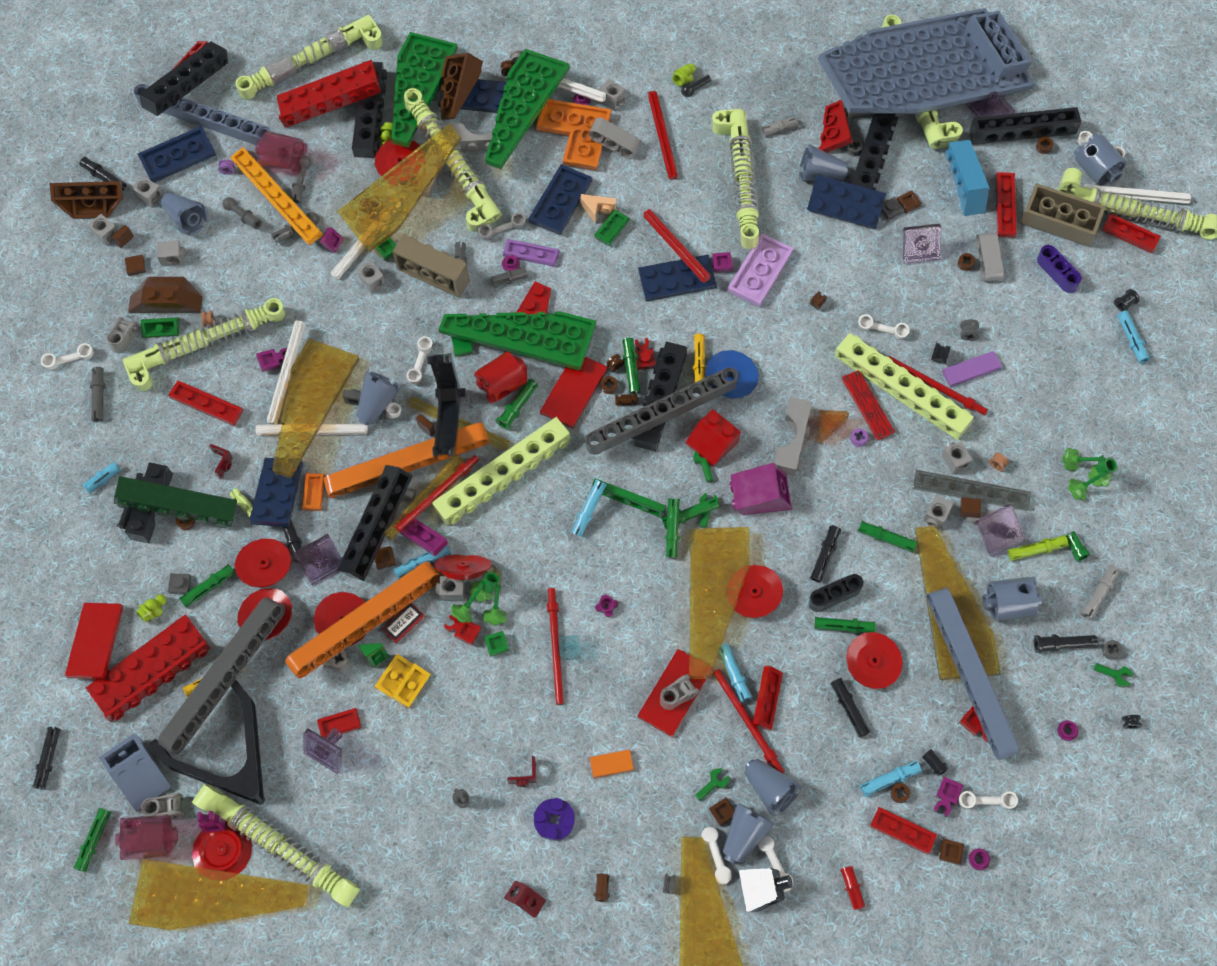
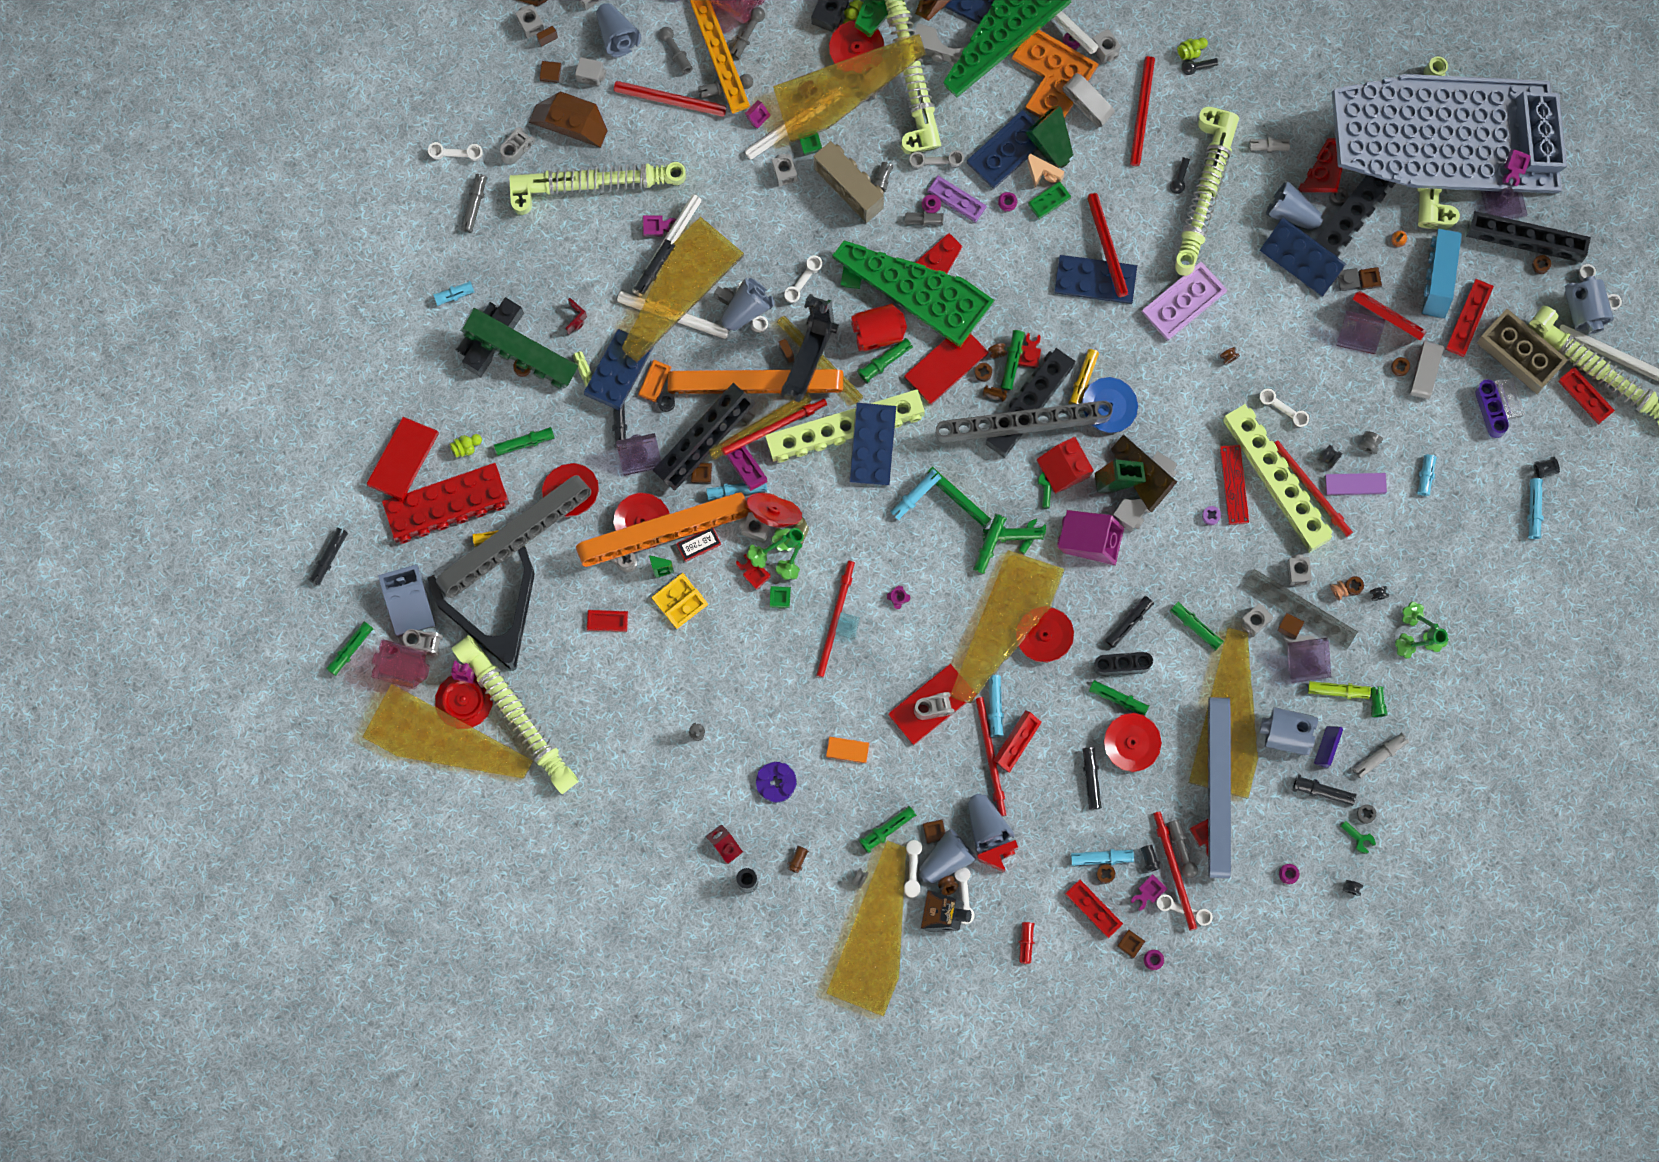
camera: 20 degrees right, 10 degrees up
(160, 327) = (556, 150): green slope -> none
(179, 583) = (498, 429): dark grey plate -> none
(205, 403) = (577, 250): red plate -> none
(207, 318) = (606, 159): nougat bush -> none
(246, 253) = (670, 98): none -> red axle
(263, 563) = (584, 437): red piece -> none
(280, 392) = (650, 273): none -> black pin
(324, 749) = (585, 641): clear purple tile -> none
(330, 512) = (660, 401): none -> black bush
(523, 781) = (760, 737): dark red bracket -> none
(533, 477) = (872, 443): none -> dark blue plate
(554, 921) = (743, 873): none -> black pin
(576, 236) = (1010, 196): none -> magenta plate
(595, 175) = (1052, 137): none -> dark green slope
(669, 833) = (907, 814): none -> green pin
(714, 783) = (934, 803): green bar -> none
(715, 182) = (1177, 185): none -> black bar
(722, 262) = (1148, 279): magenta plate -> none
(756, 859) = (947, 885): none -> reddish brown bush
(765, 428) = (1119, 476): none -> dark green slope
(788, 419) = (1157, 482): none -> dark brown wing
(788, 816) = (993, 857): none -> red slope
(829, 422) = (1187, 490): clear orange slope -> none
(922, 165) = (1402, 241): none -> orange hinge
(937, 735) = (1163, 833): none -> red bar
(945, 222) = (1389, 315): none -> red tile
(975, 759) = (1189, 868): none -> dark grey pin
(992, 71) = (1516, 164): none -> magenta plate
(1010, 448) = (1351, 591): none -> reddish brown bush
(1029, 341) = (1426, 475): none -> medium azure pin
(1034, 452) = (1379, 593): none -> black bush
(1051, 601) = (1328, 746): none -> dark purple slope
(1071, 255) = (1510, 398): none -> clear plate

